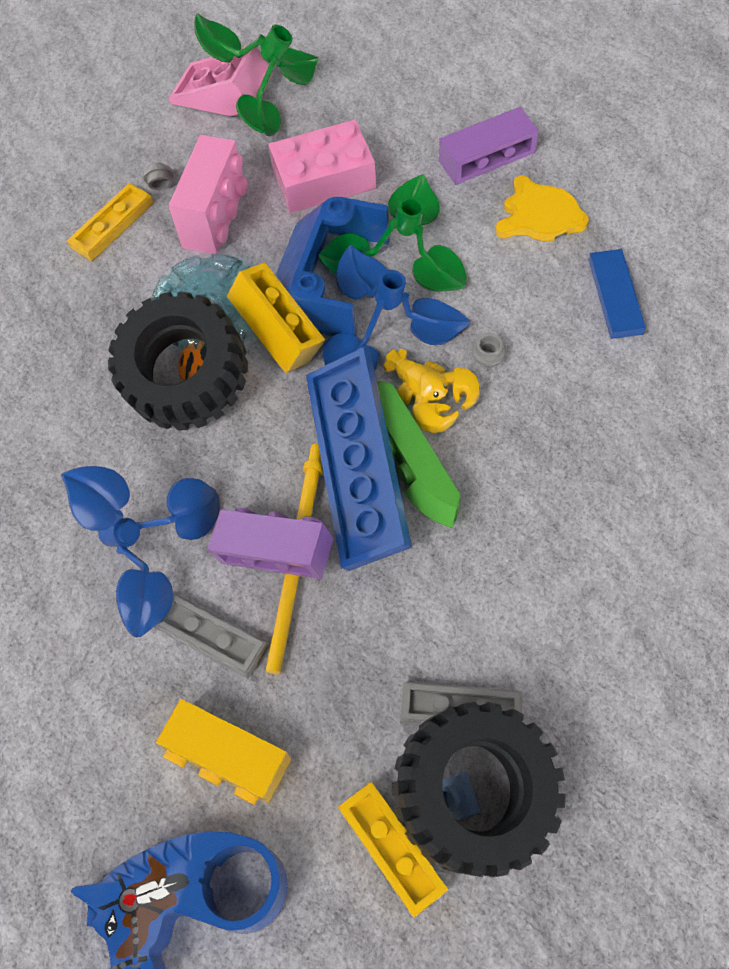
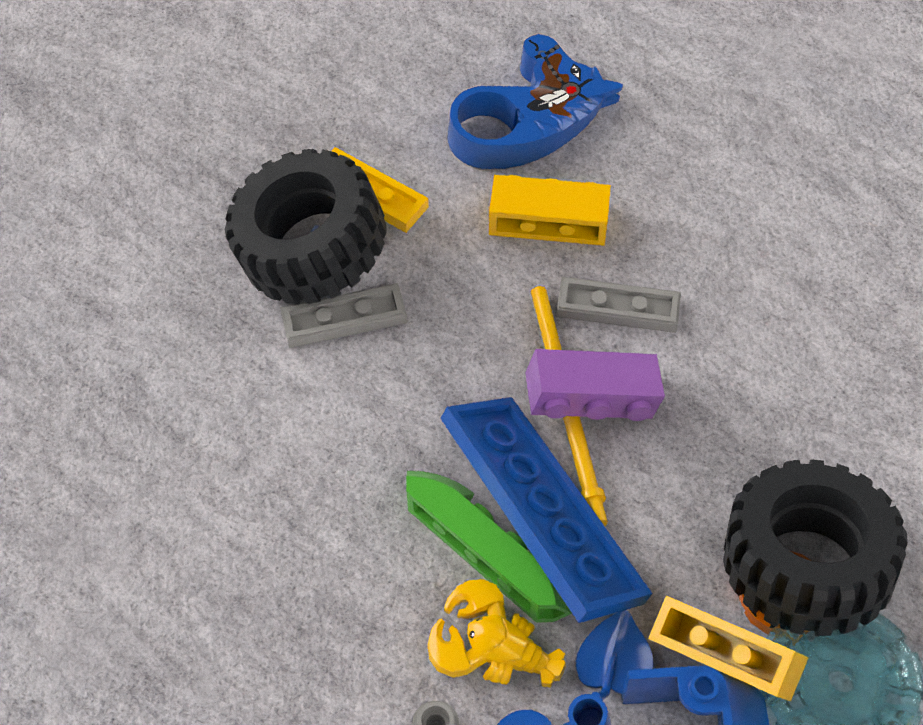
camera: 155 degrees right, 5 degrees down
(96, 501) = (782, 320): blue plant -> none

